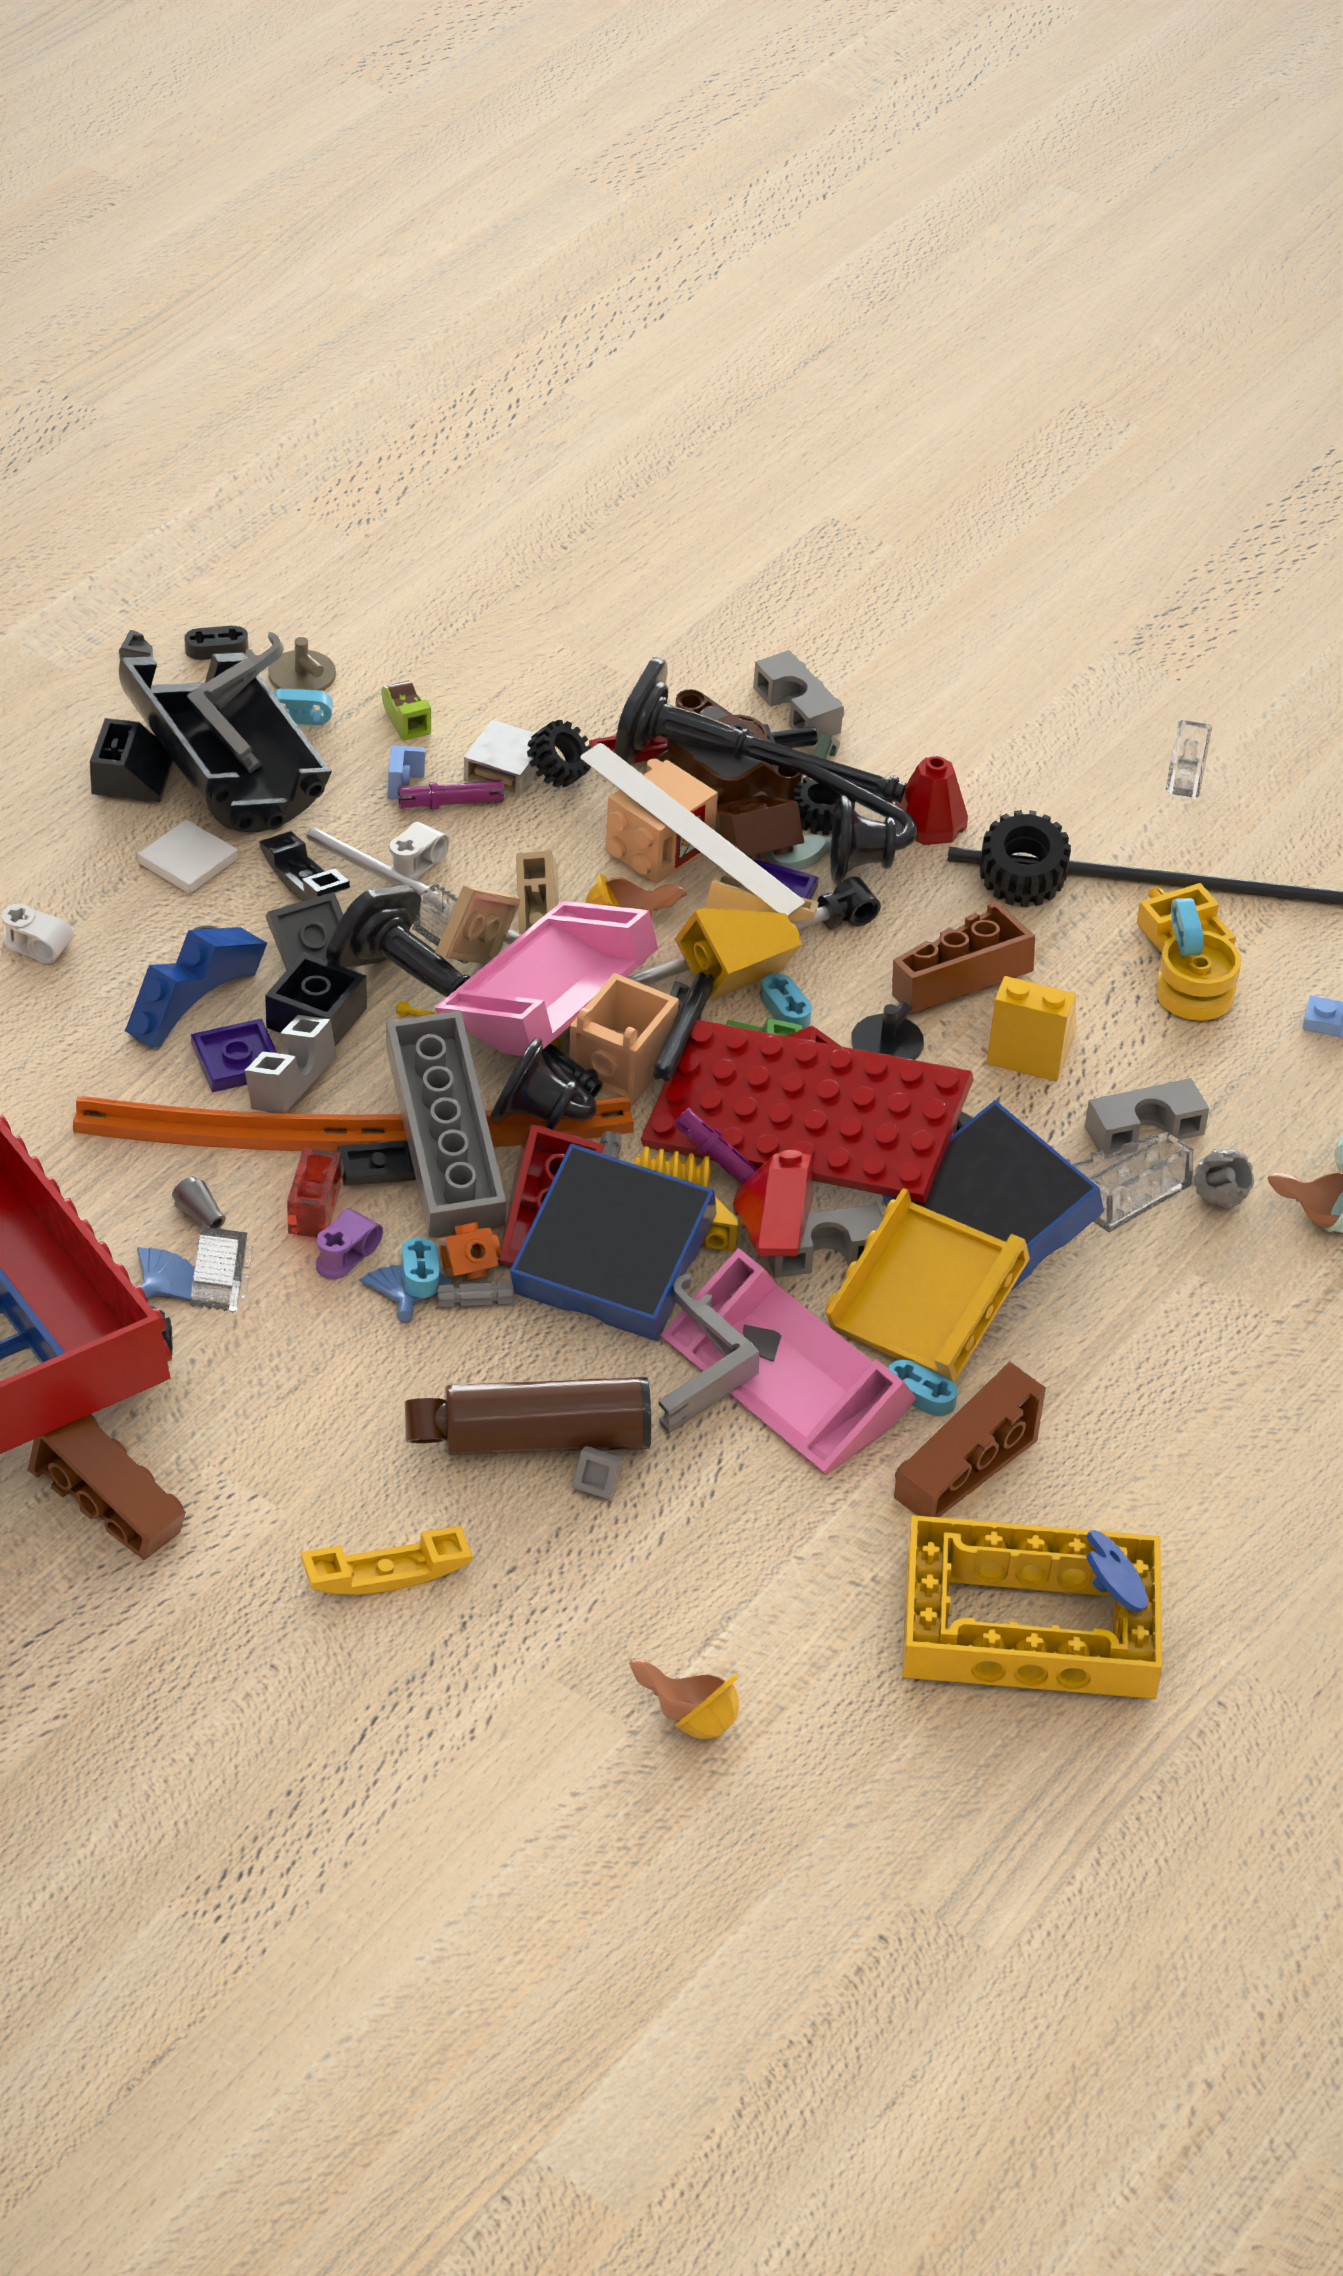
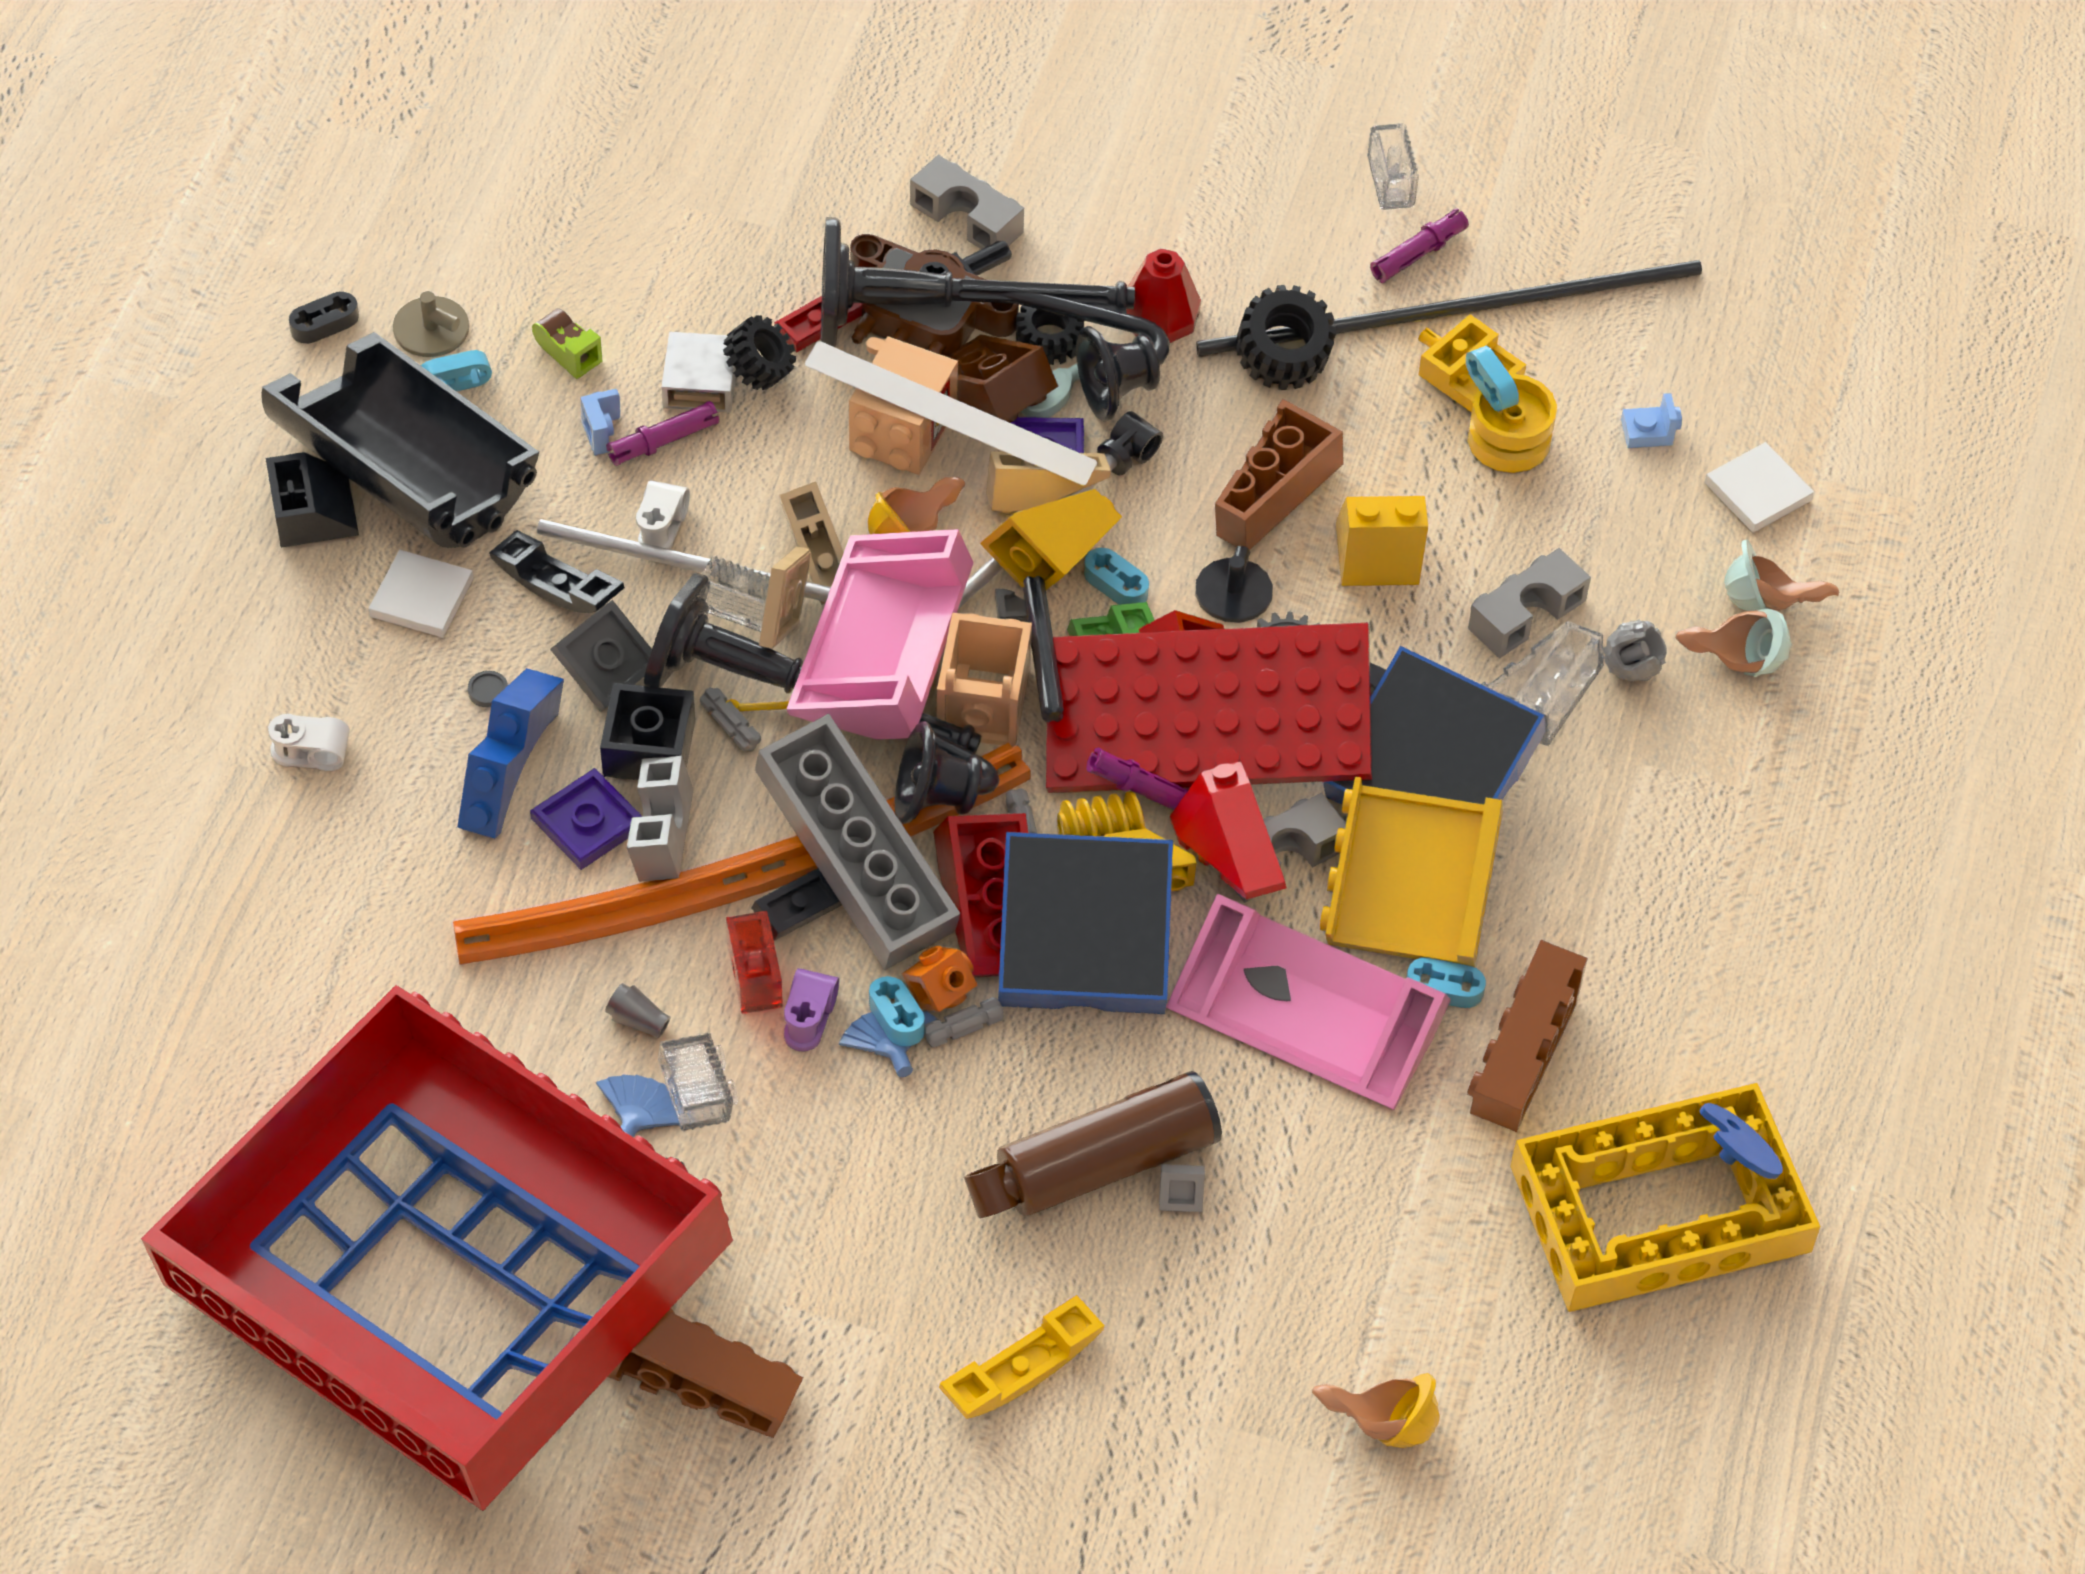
camera: 20 degrees left, 10 degrees up
(135, 646) = (241, 350): dark grey tile -> none
(223, 689) = (372, 384): light grey hinge -> none
(391, 1004) = (730, 719): none -> light grey axle
(720, 1379) = (1246, 999): light grey hinge -> none
(826, 746) = (1022, 263): sand green tile -> none
(1198, 823) = (1431, 237): none -> magenta pin

